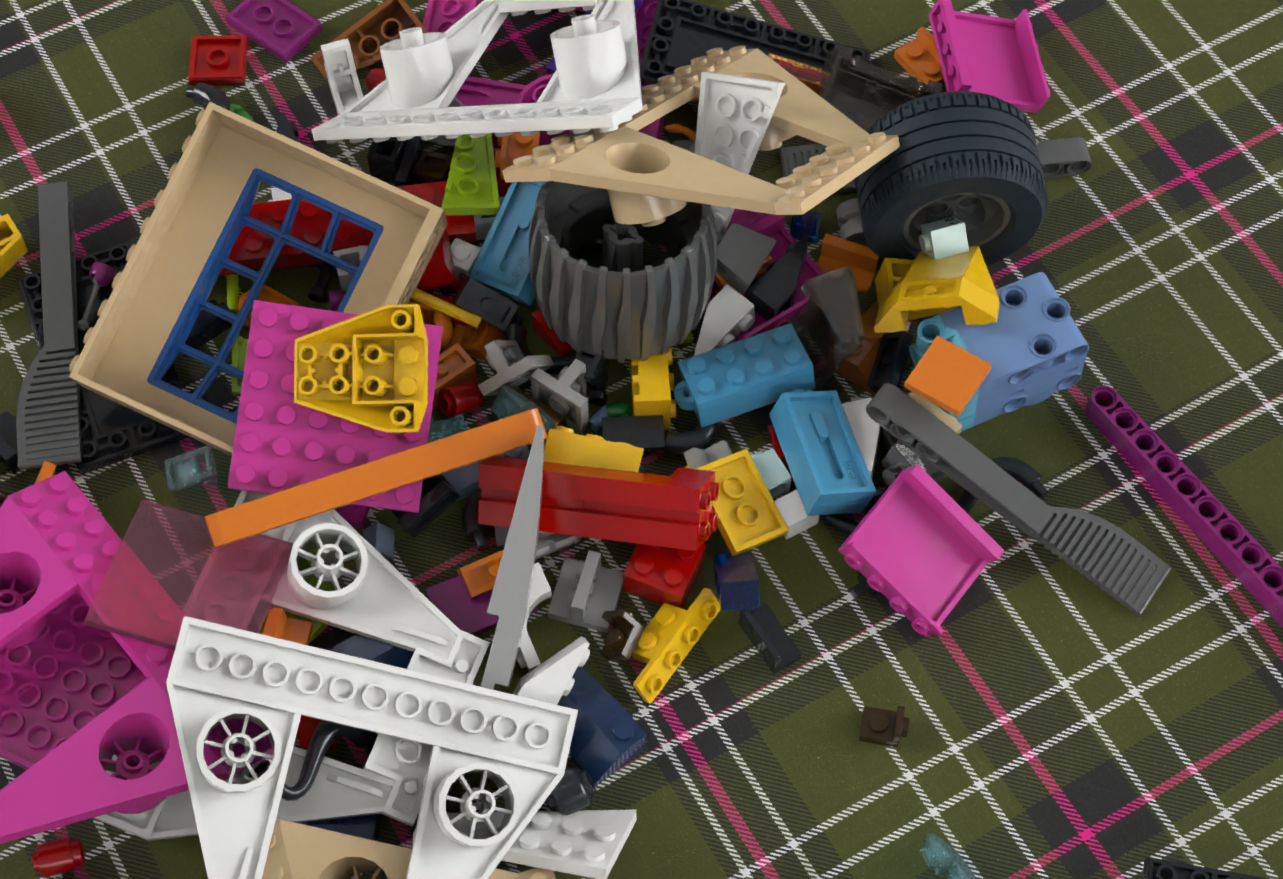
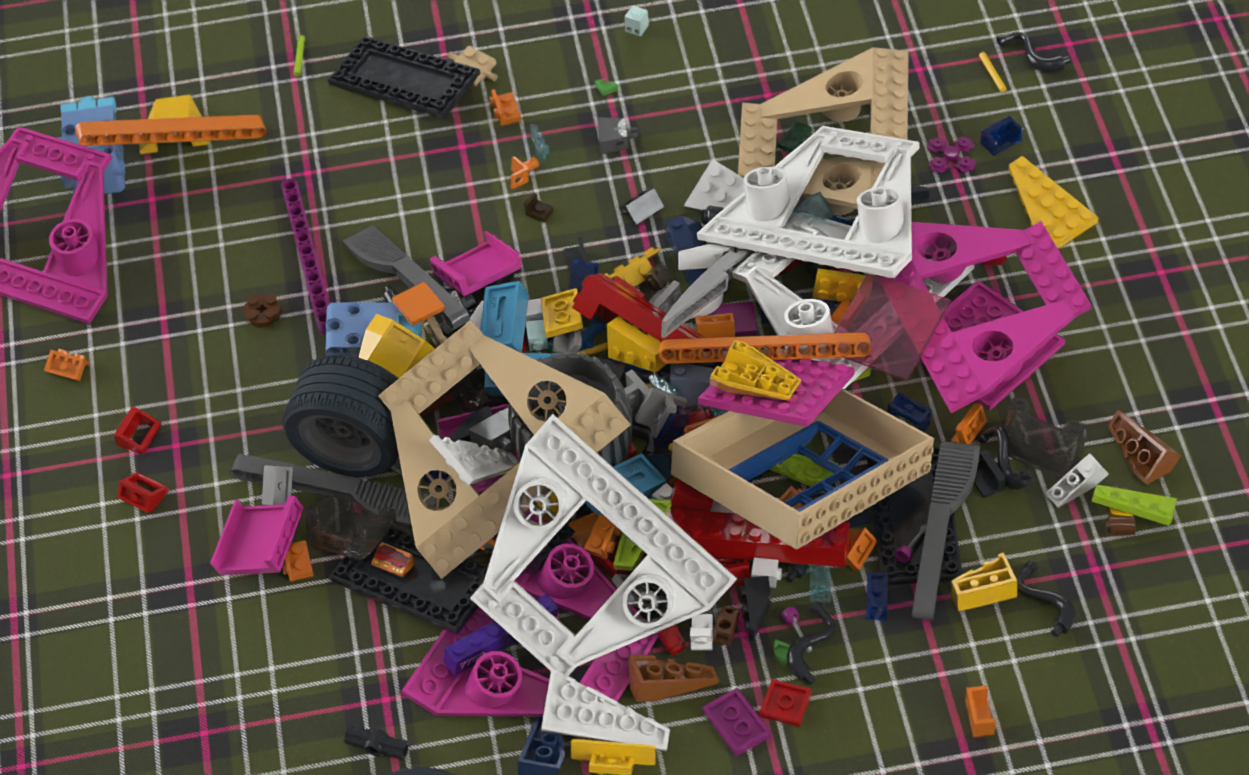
camera: 155 degrees left, 10 degrees down
(126, 208) = (877, 596): none -> clear blue panel
(127, 491) = (911, 411): none -> clear blue panel
(317, 118) = (726, 626): none -> reddish brown leg
(386, 821) = (815, 207): none -> clear light blue slope
(477, 357) = (672, 427): none -> clear blue panel
(711, 786) = (642, 205): none -> panel
(949, 801) = (522, 170): none -> orange bracket
(1191, 79) = (139, 496): none -> red tile
(1219, 392) = (259, 302): none -> reddish brown plate
(1269, 164) = (128, 427): none -> red tile

